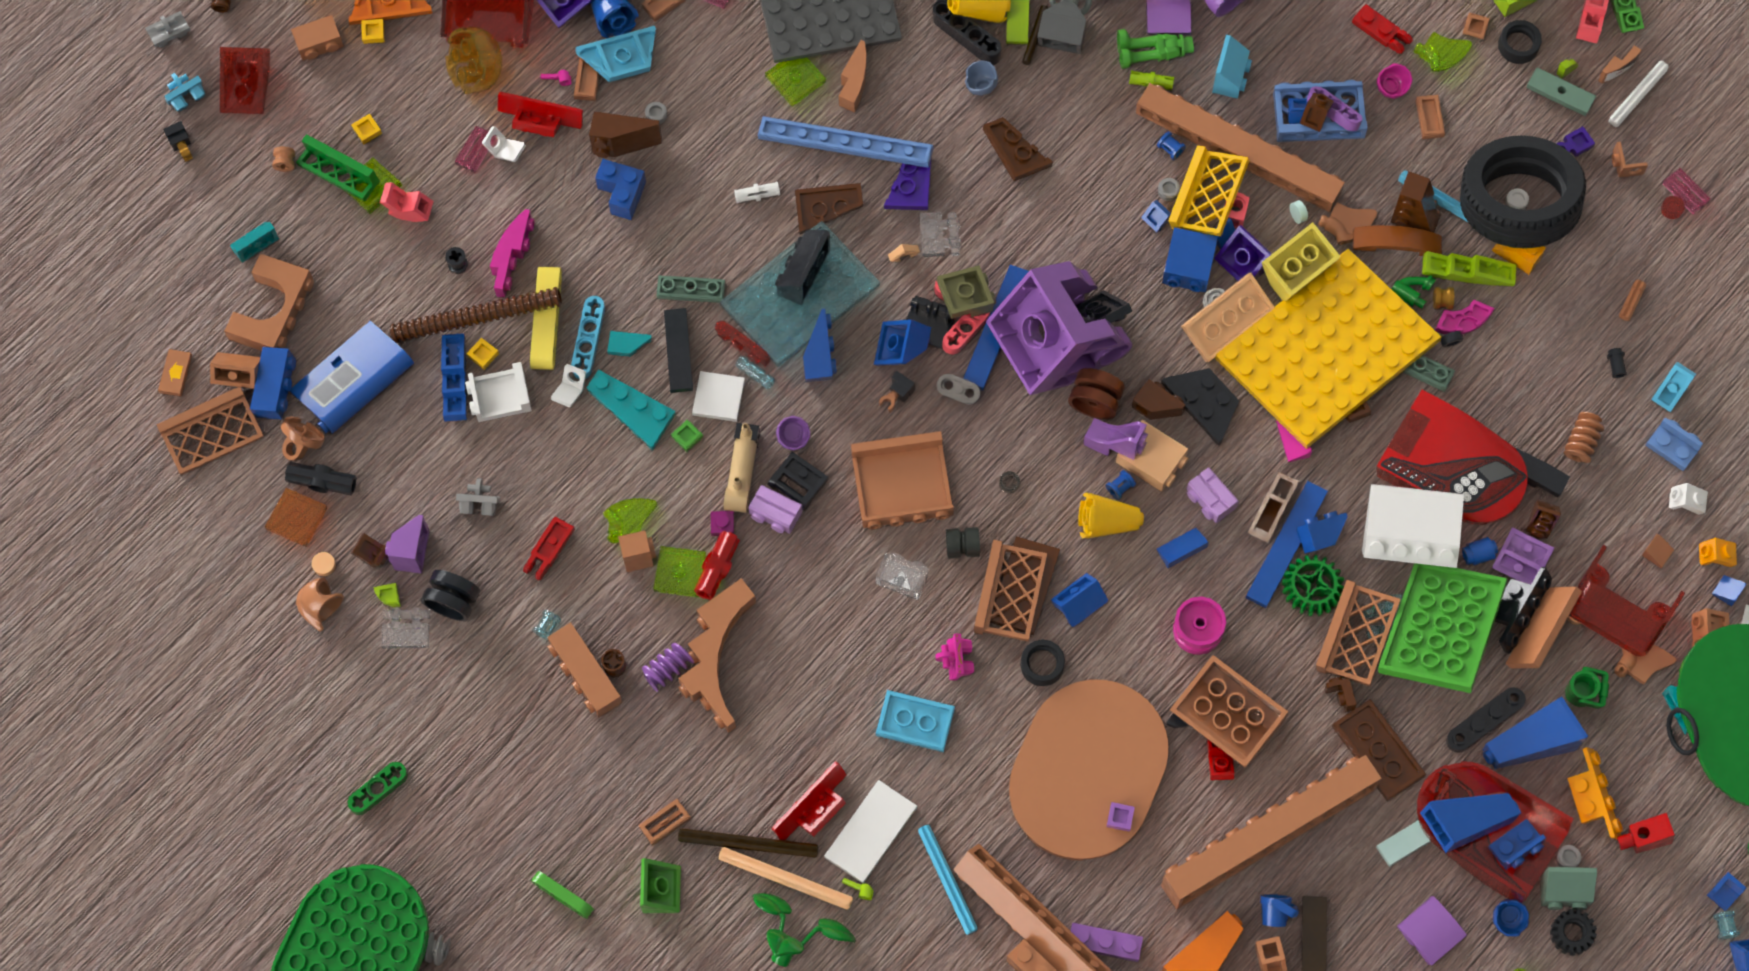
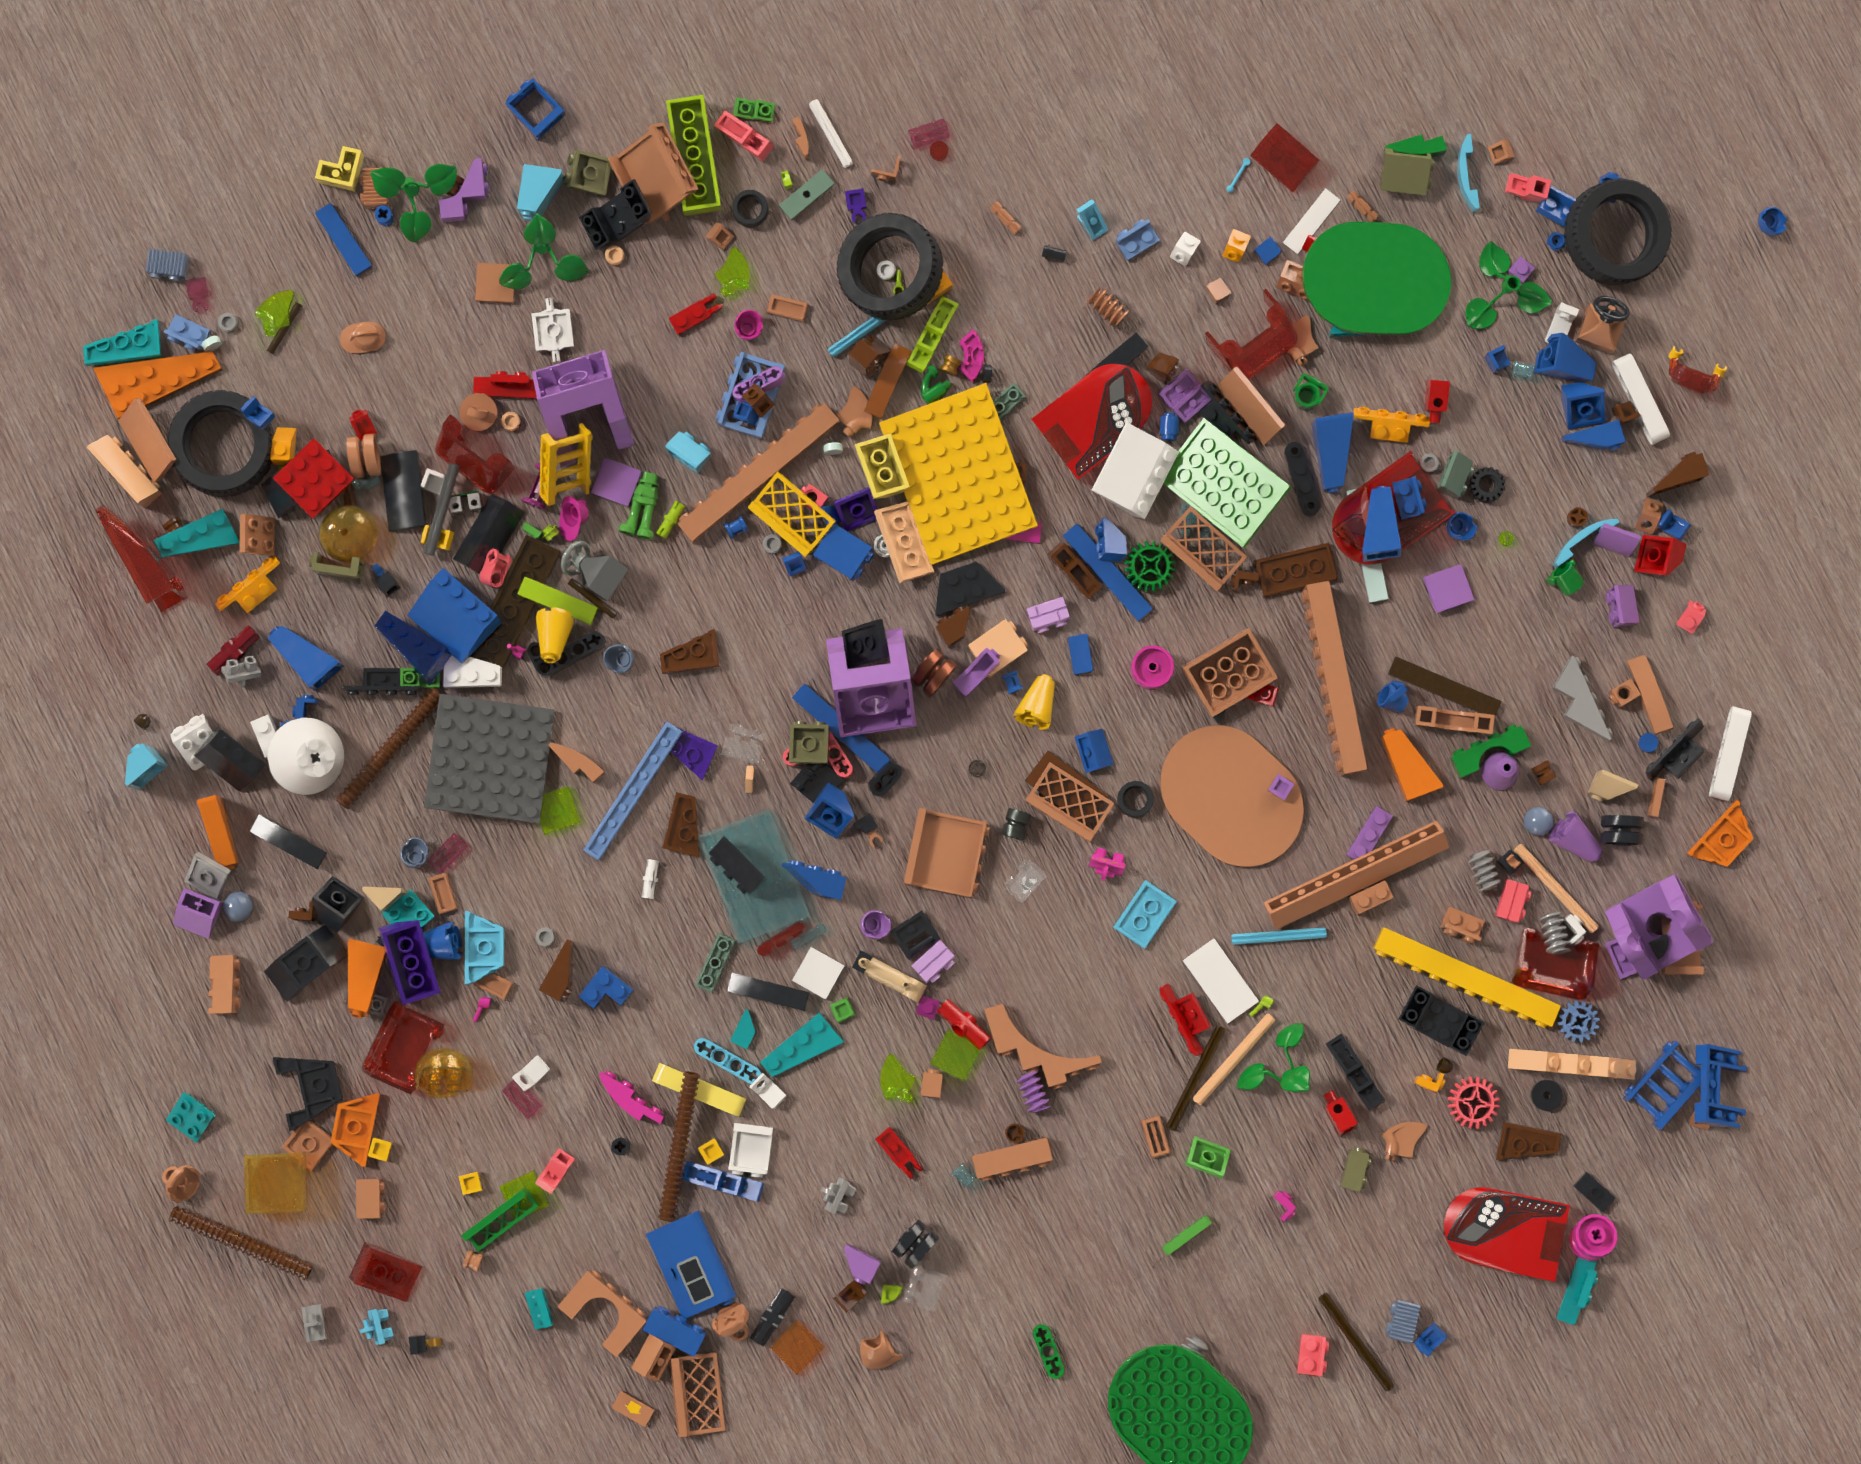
camera: 75 degrees left, 15 degrees up
(323, 564) = (845, 1337): light nougat tile -> none
(538, 115) = (514, 1036): red bracket -> none
(1695, 730) = (1369, 345): black piece -> none

